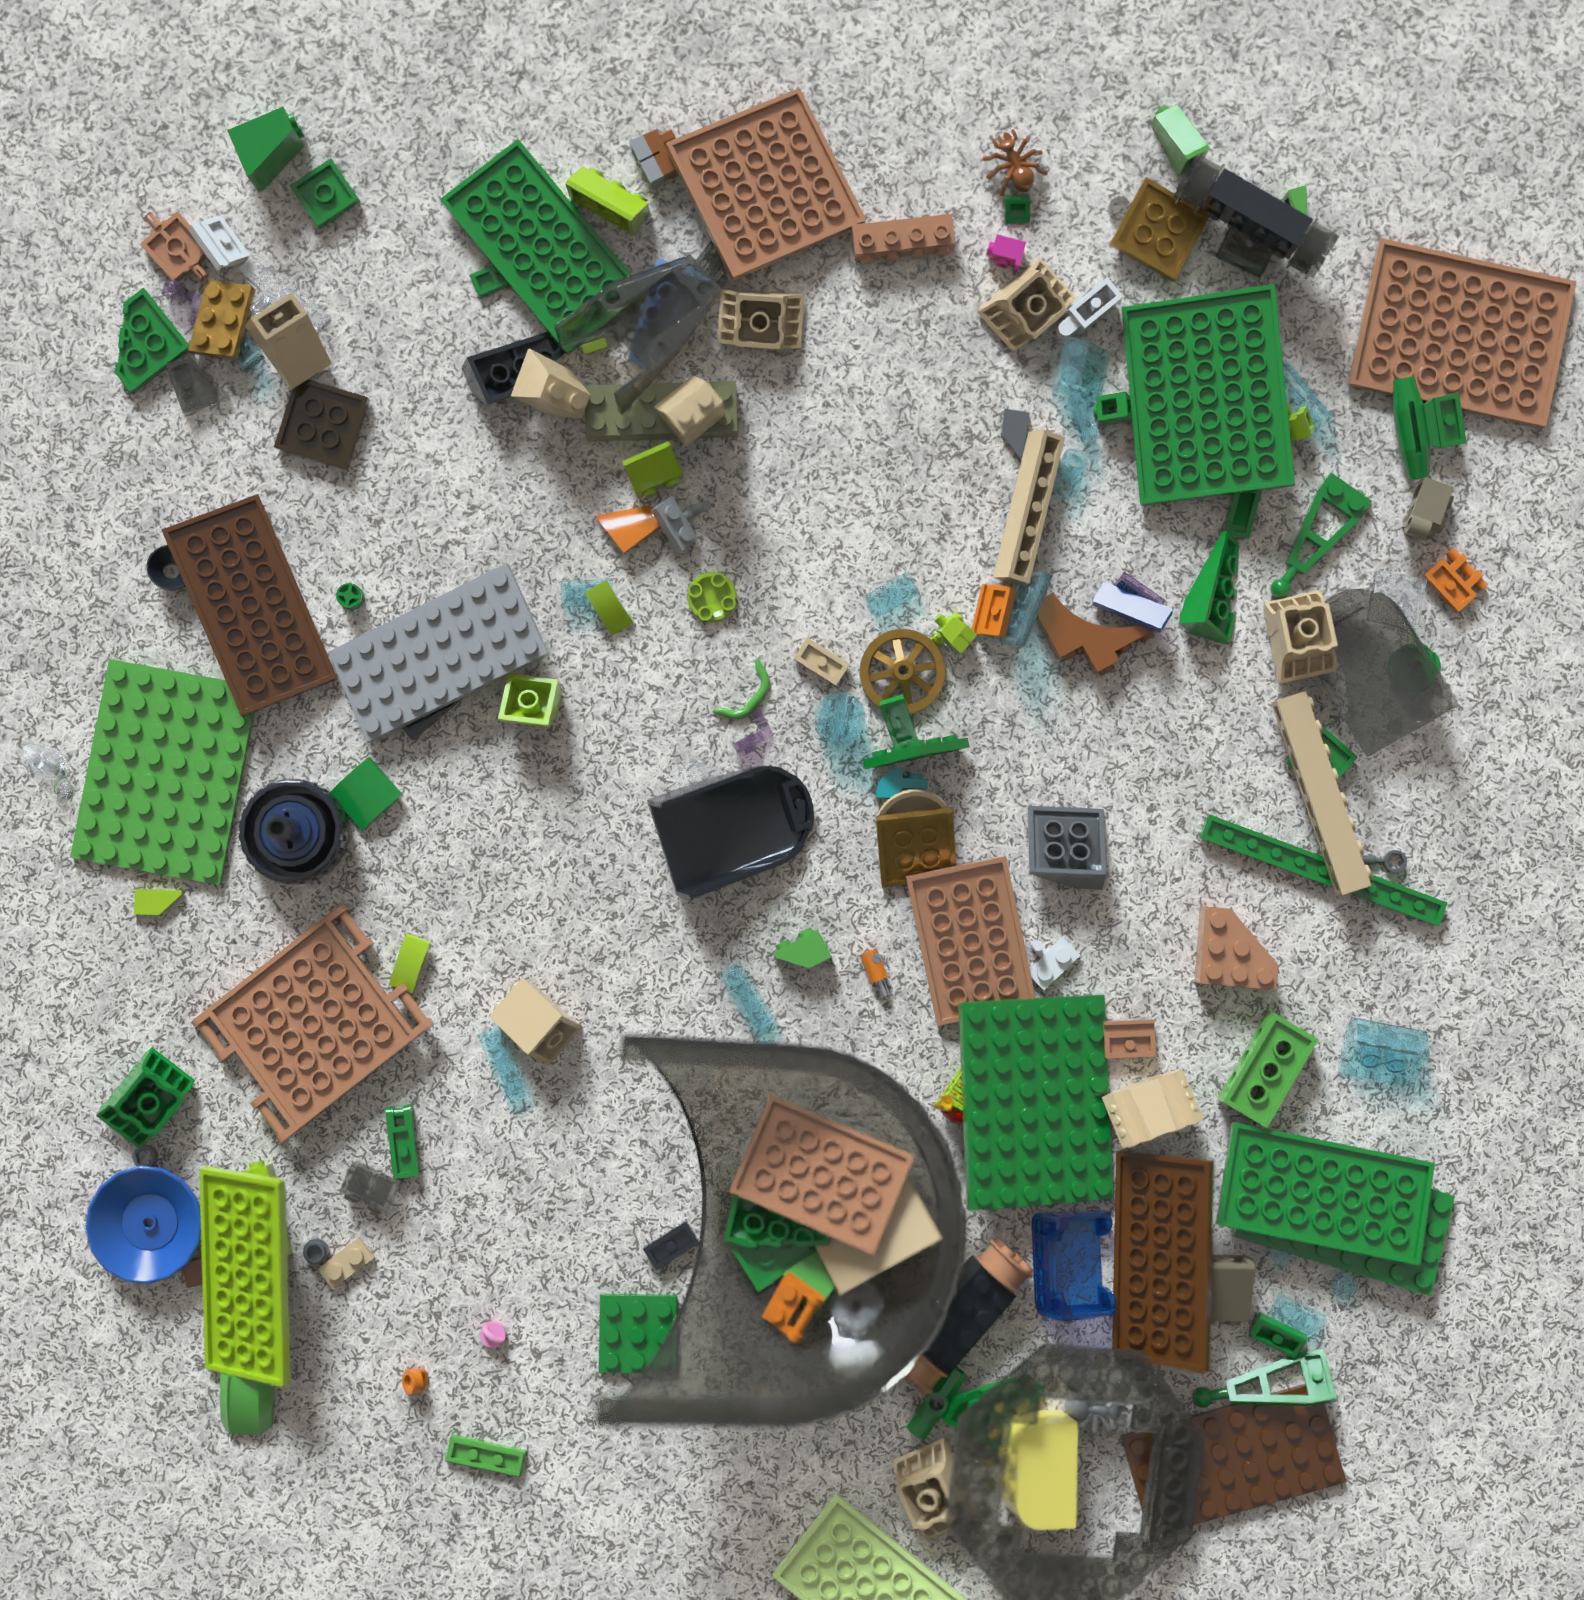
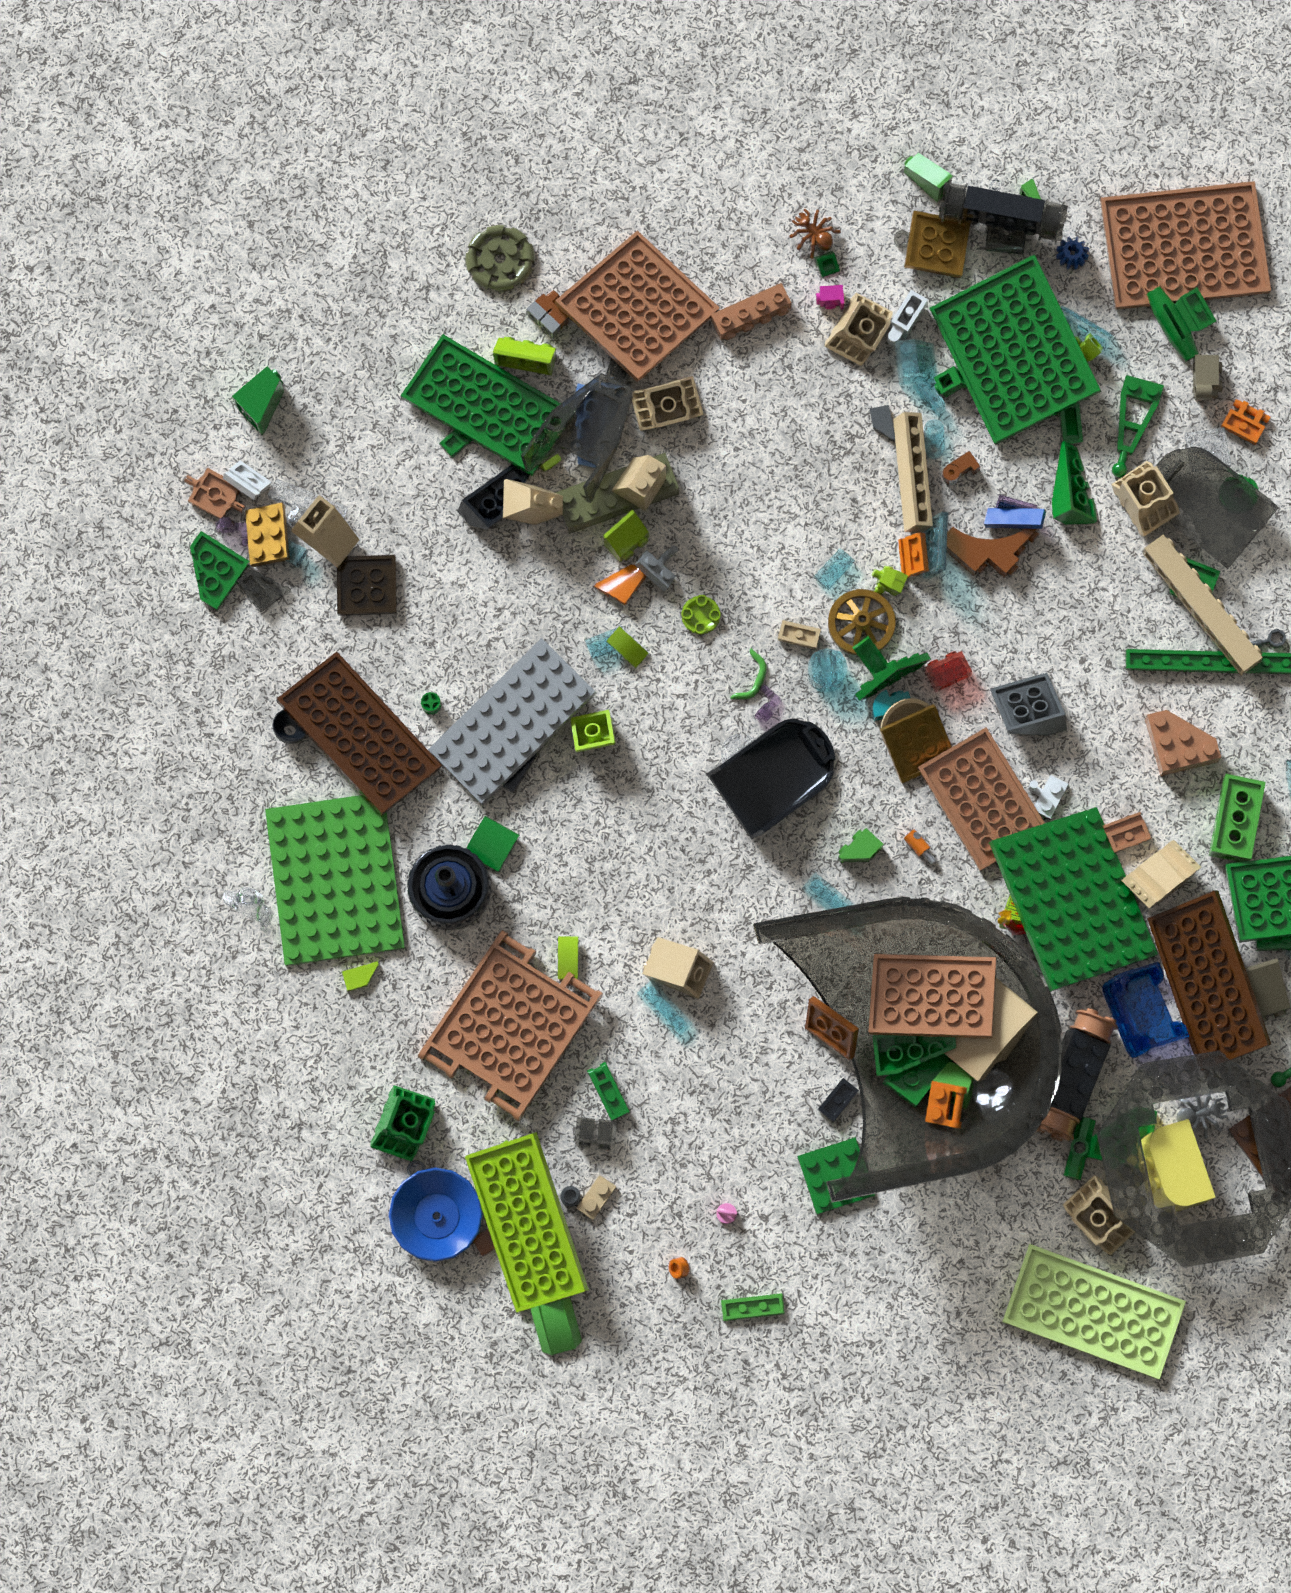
camera: 10 degrees left, 10 degrees down
(325, 193) = (312, 419): green plate -> none
(618, 51) = (496, 247): none -> olive plate
(690, 1163) = (831, 1028): none -> dark orange tile
(985, 768) = (948, 670): none -> clear red brick
(1088, 519) = (959, 467): none -> dark orange leg
(1311, 294) = (1076, 259): none -> blue gear

